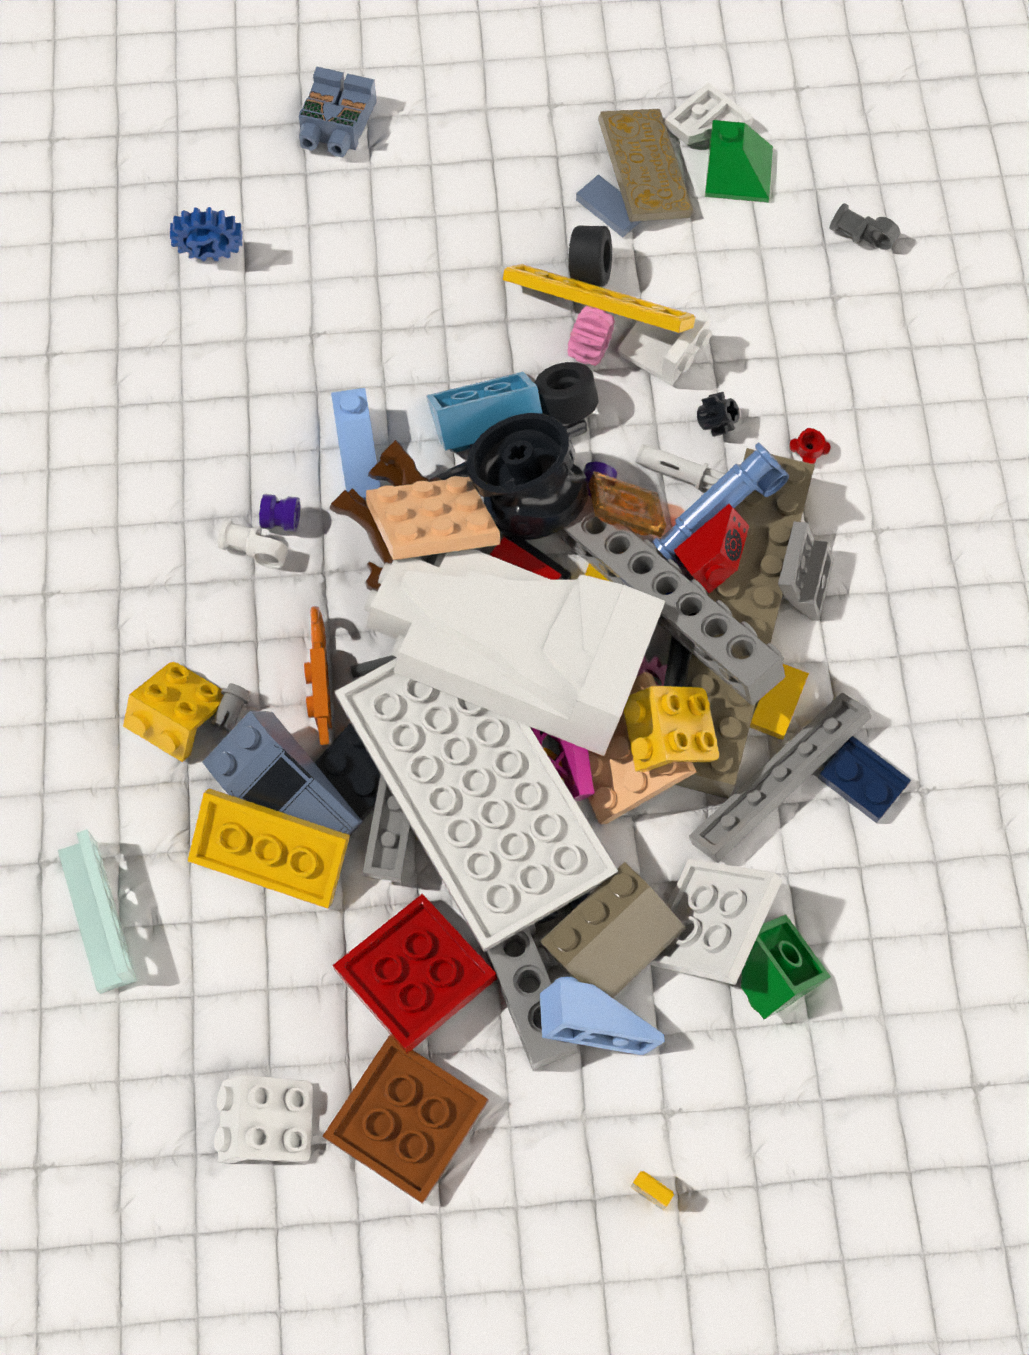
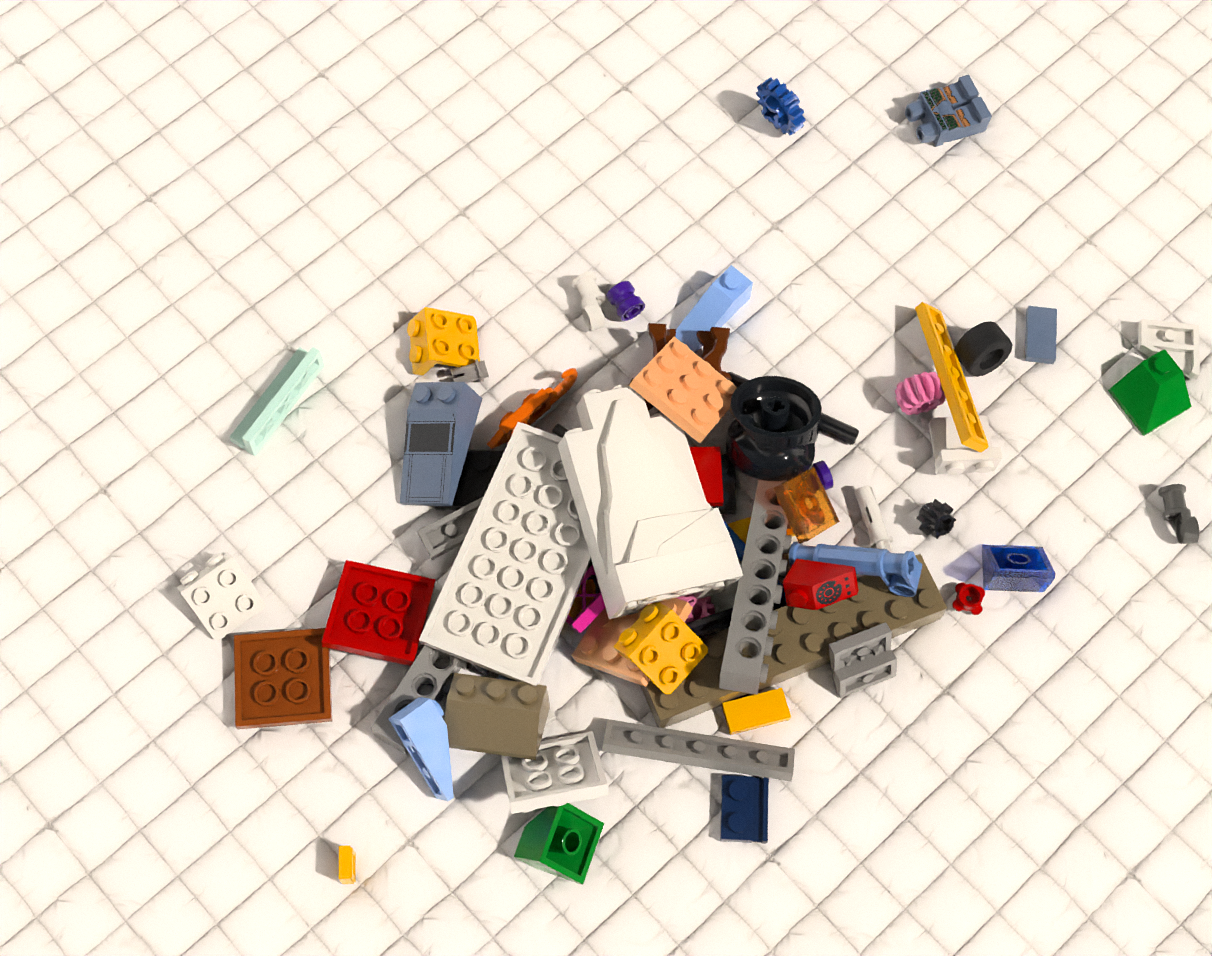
camera: 50 degrees right, 0 degrees up
(268, 848) = (392, 465): yellow plate -> none
(470, 410) = (801, 359): dark azure slope -> none
(567, 391) = (863, 409): black tyre -> none
(645, 165) = (1093, 333): dark tan tile -> none
(813, 386) = (1016, 568): none -> clear blue slope

